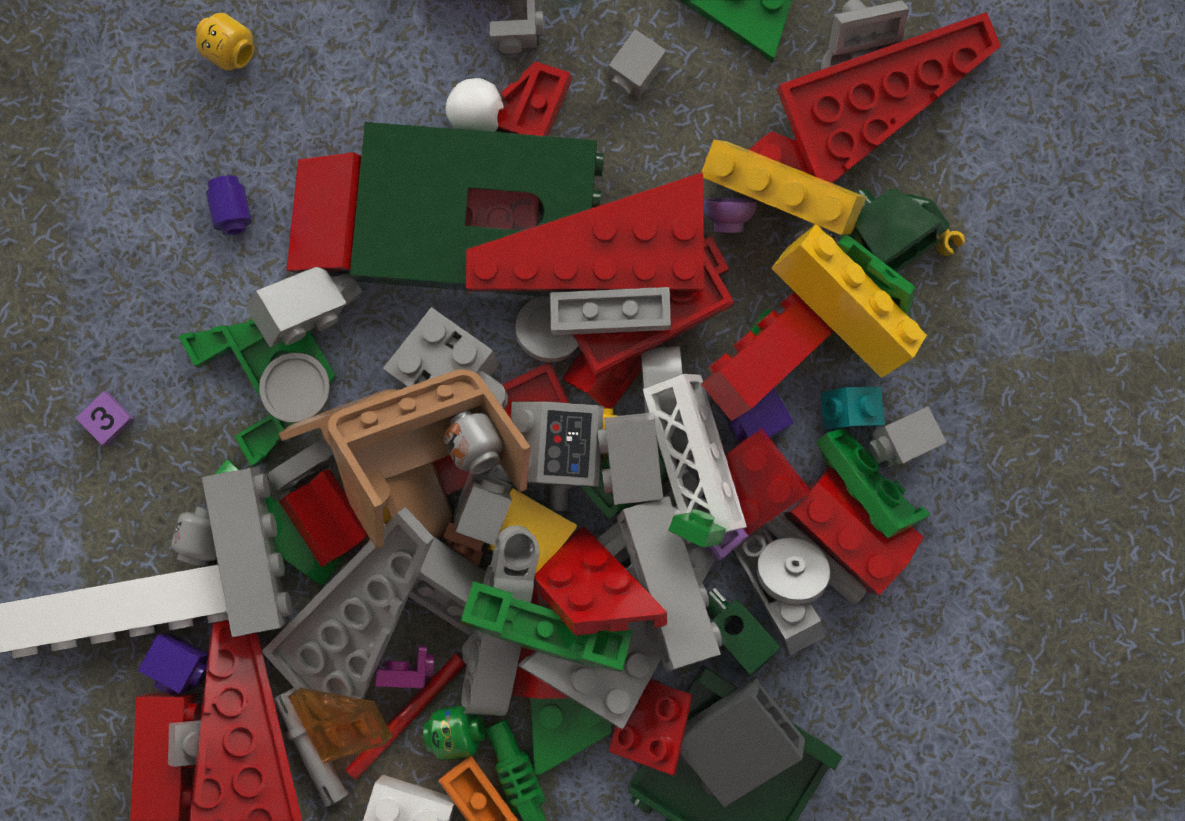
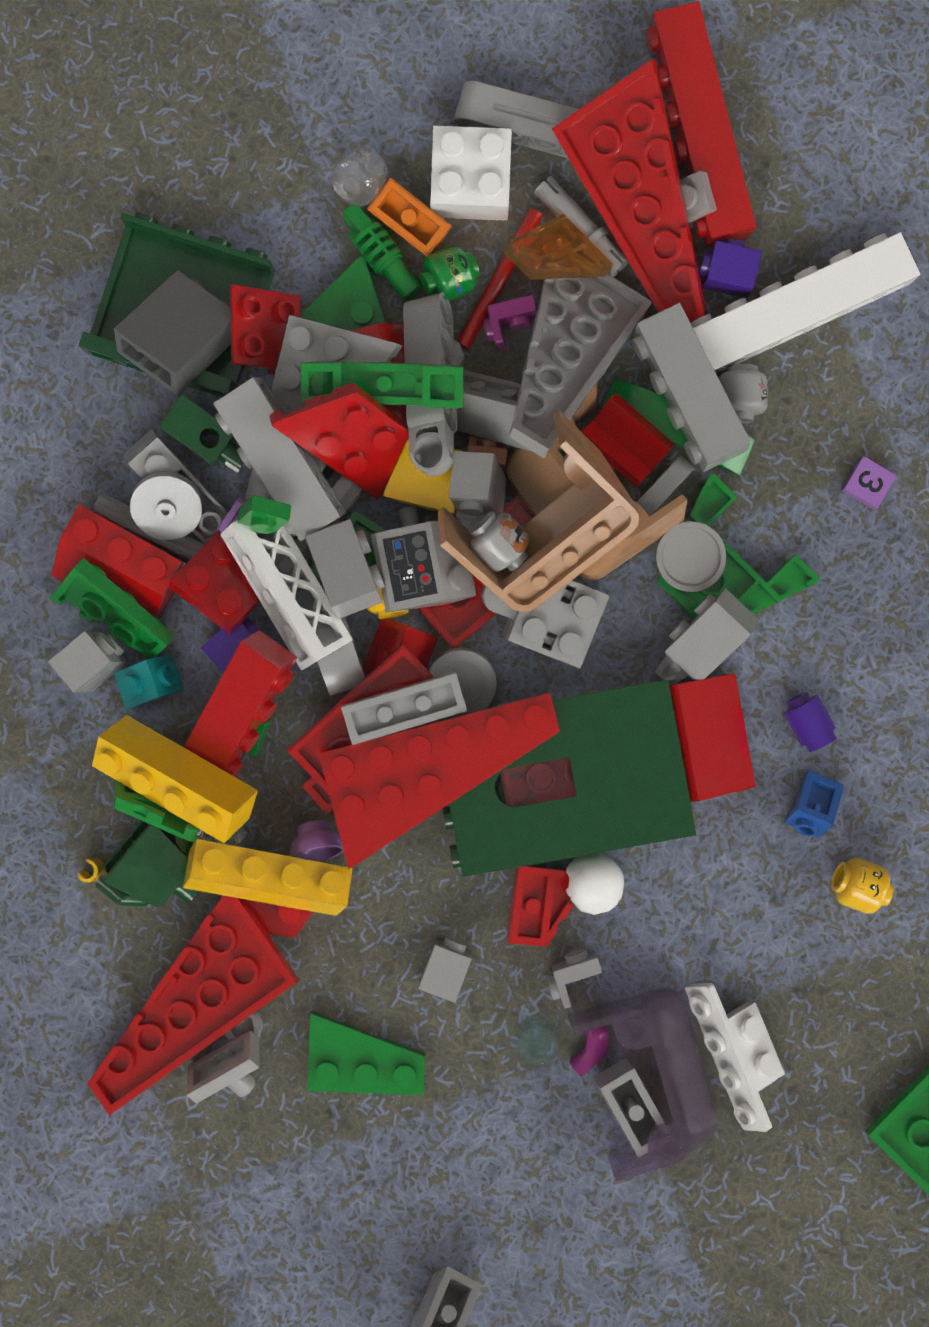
camera: 160 degrees right, 5 degrees up
(246, 127) = (815, 805): none -> blue bracket

